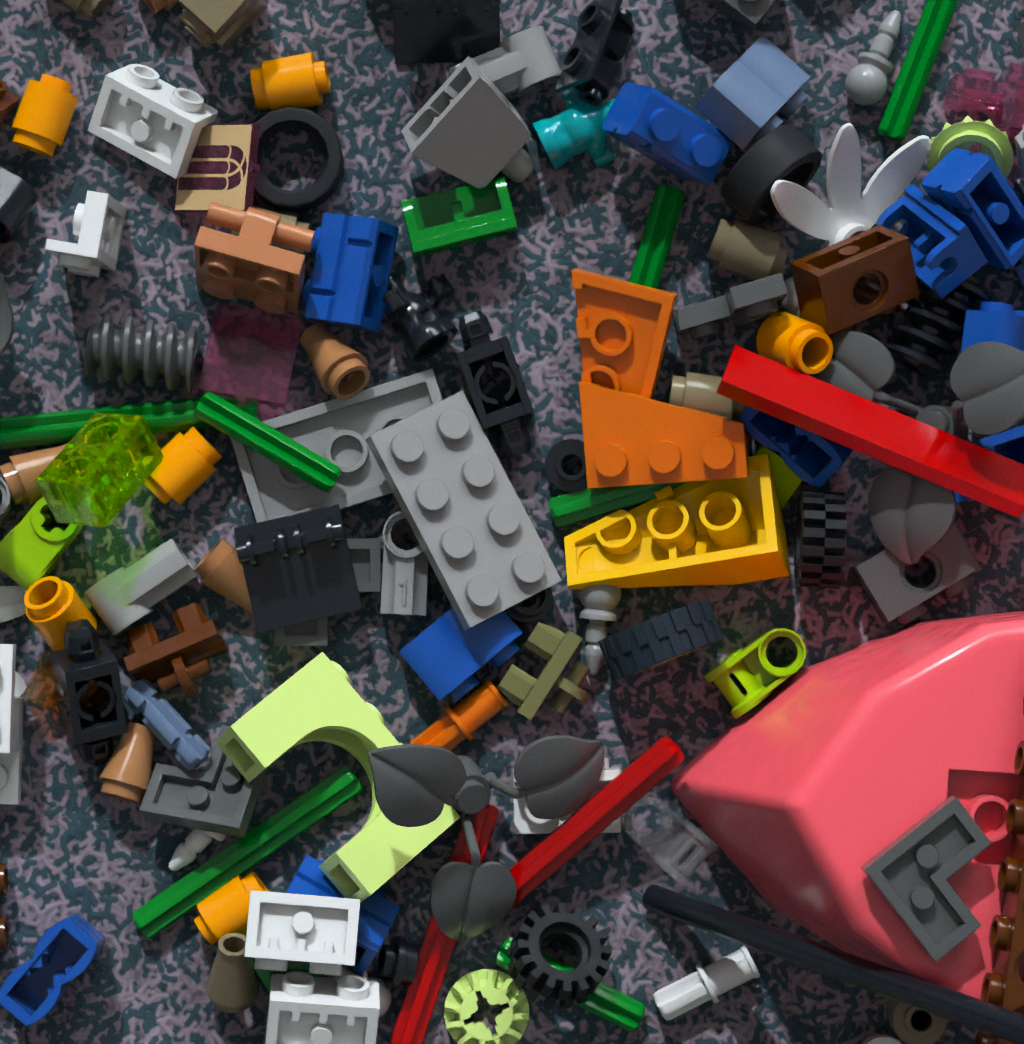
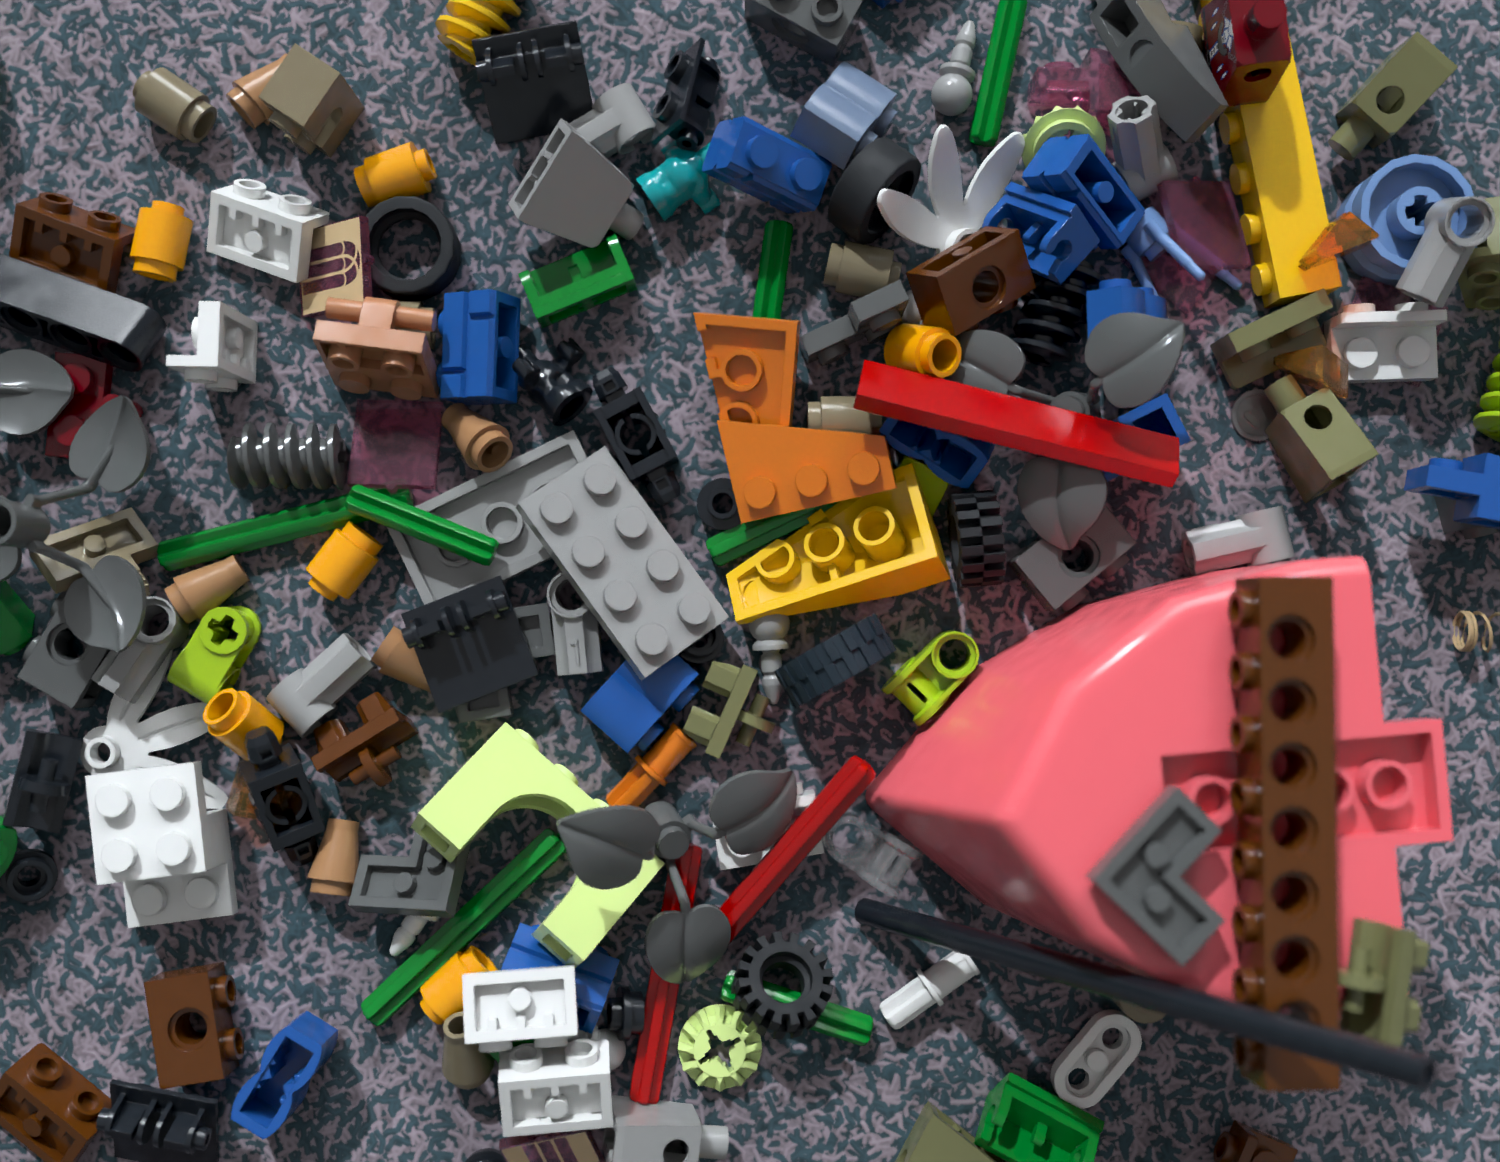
camera: 10 degrees left, 0 degrees up
(100, 469) = (256, 576): clear neon green brick -> none
(167, 724) = (365, 815): sand blue axle -> none

